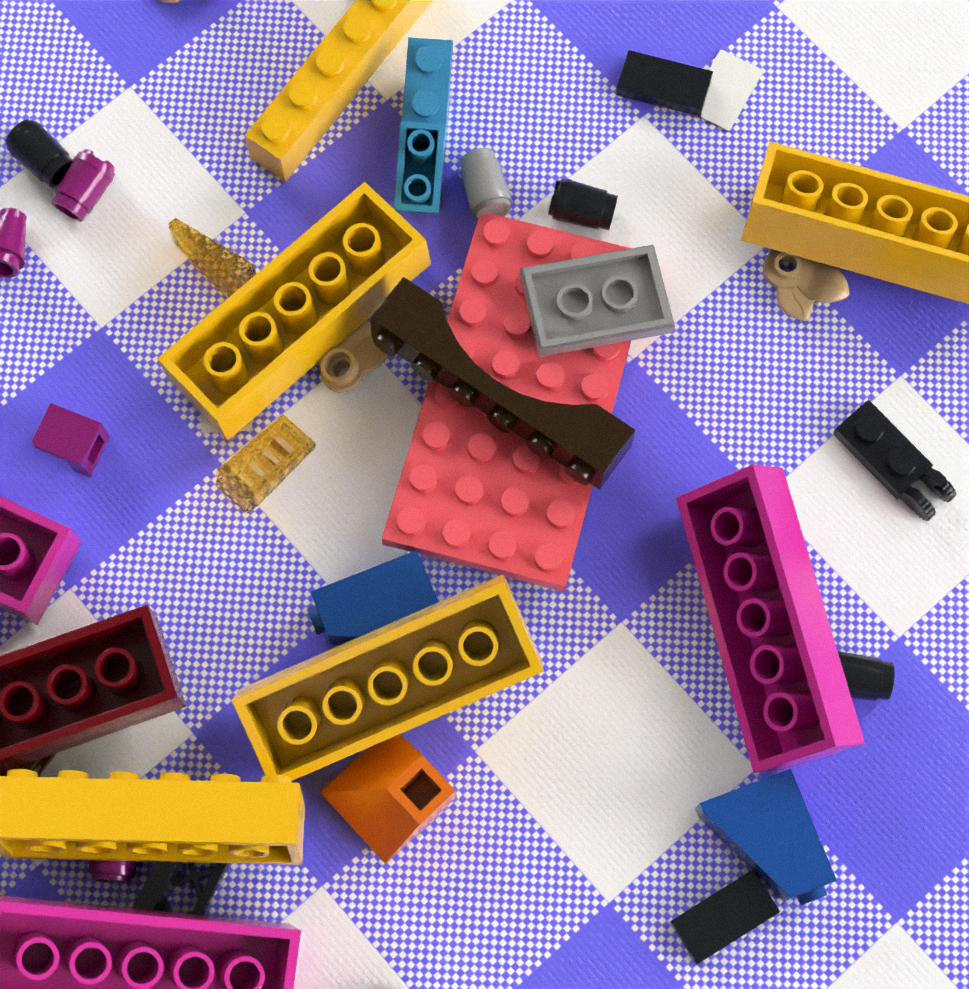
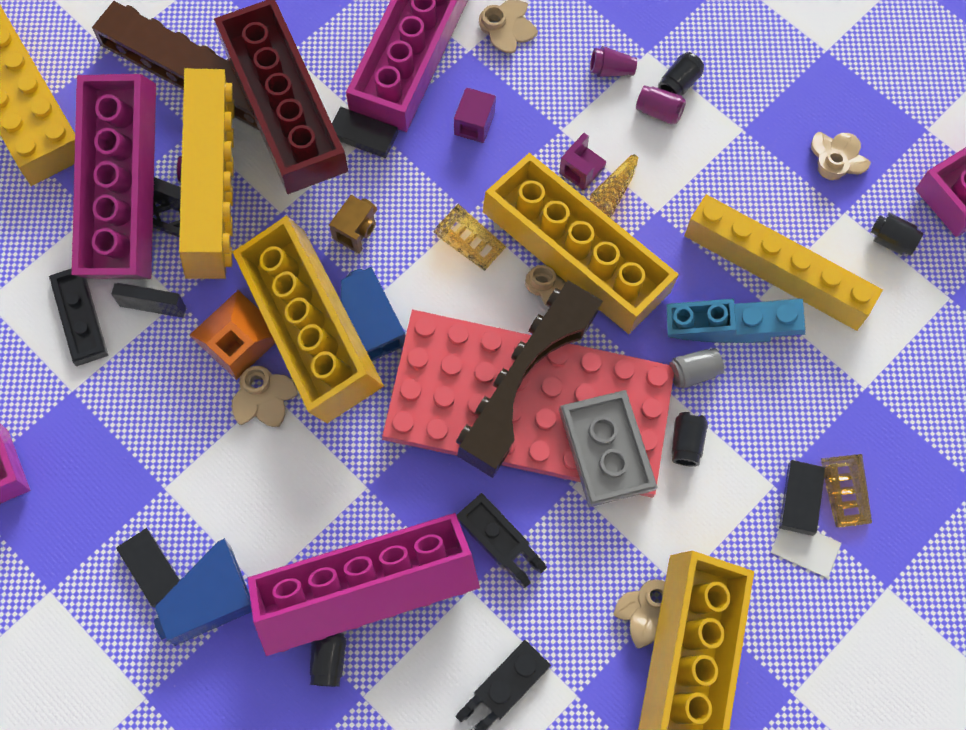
camera: 85 degrees right, 5 degrees down
(76, 599) = (364, 132): none -> black tile
(165, 300) = (580, 163): none -> magenta panel
(230, 619) = (353, 223): none -> pearl gold brick
(326, 922) = (149, 300): none -> black tile
(492, 756) = (265, 401): none -> tan plate
(654, 43) = (859, 487): none -> clear yellow slope
(702, 451) = (499, 538): none -> black hinge

